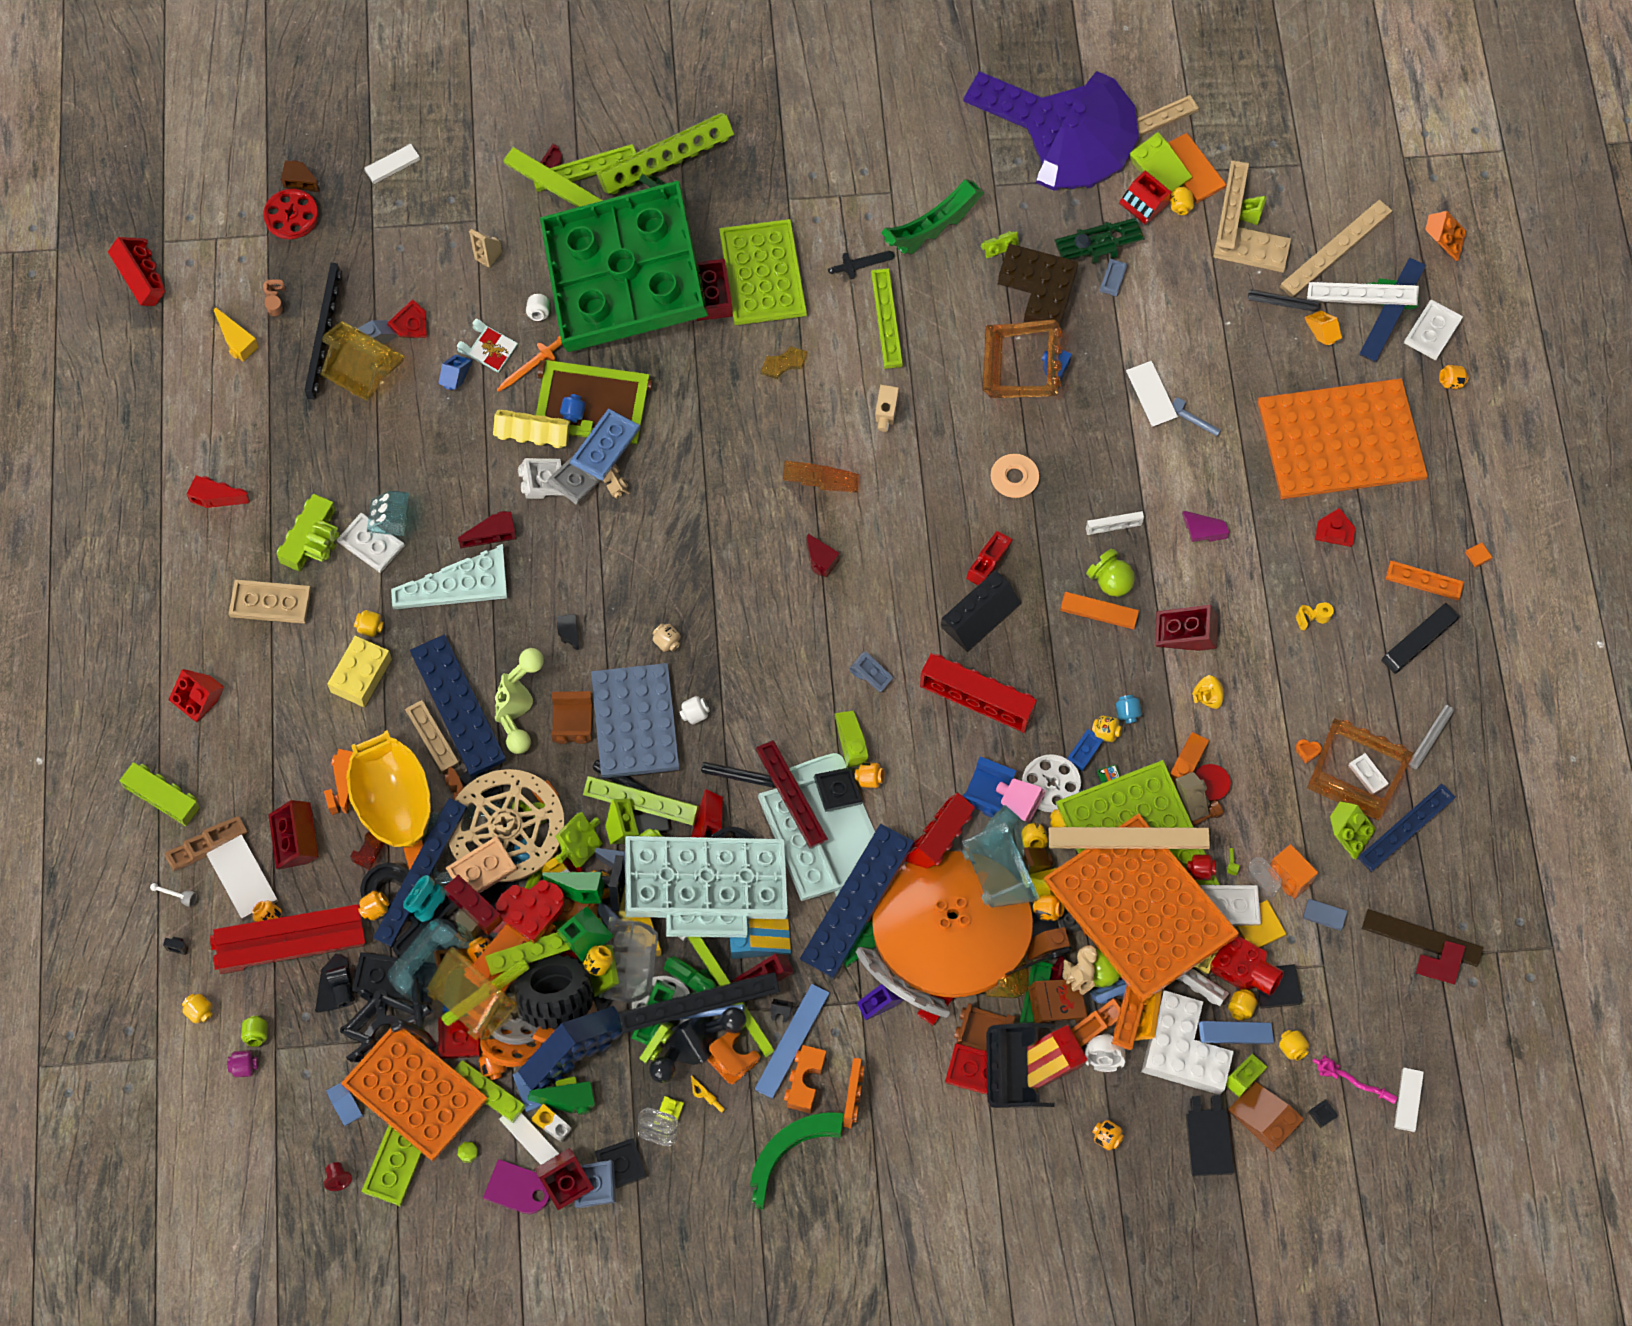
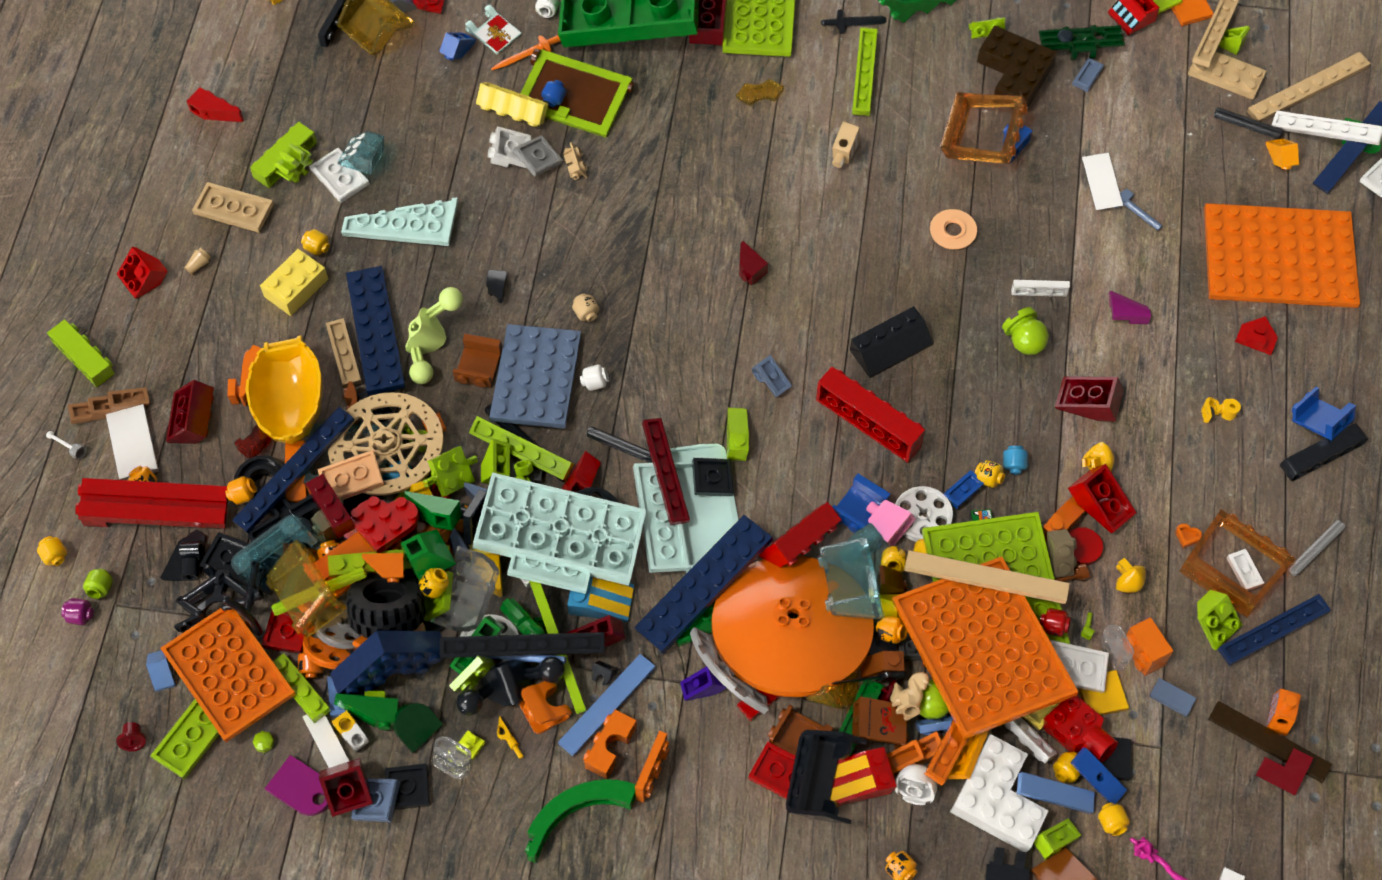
camera: 15 degrees right, 5 degrees down
(175, 945) = (51, 490): black plate -> none
(250, 668) = (197, 261): none -> tan cone
(424, 898) = (288, 504): teal brick -> none
(493, 529) = (449, 184): dark red slope -> none
(547, 953) = (387, 565): none -> orange slope
(605, 444) = (574, 129): medium blue tile -> none
(613, 1102) = (415, 724): none -> dark green tile
(649, 821) = (523, 468): none -> lime tile
(823, 476) = (767, 193): clear orange slope -> none
(870, 775) = (747, 470): light orange head -> none
(989, 558) = (911, 295): red slope -> none
(1099, 610) = (1007, 364): orange tile -> none
(1181, 201) = (1167, 19): yellow head -> none
(1220, 730) = (1102, 498): none -> red slope
(1264, 807) = (1132, 577): none -> yellow piece
(1272, 1008) = (1105, 783): none -> blue tile
(1411, 602) = (1321, 416): none -> blue panel
(1424, 580) = (1364, 411): orange tile -> none
(1429, 904) = (1285, 707): none -> orange torso

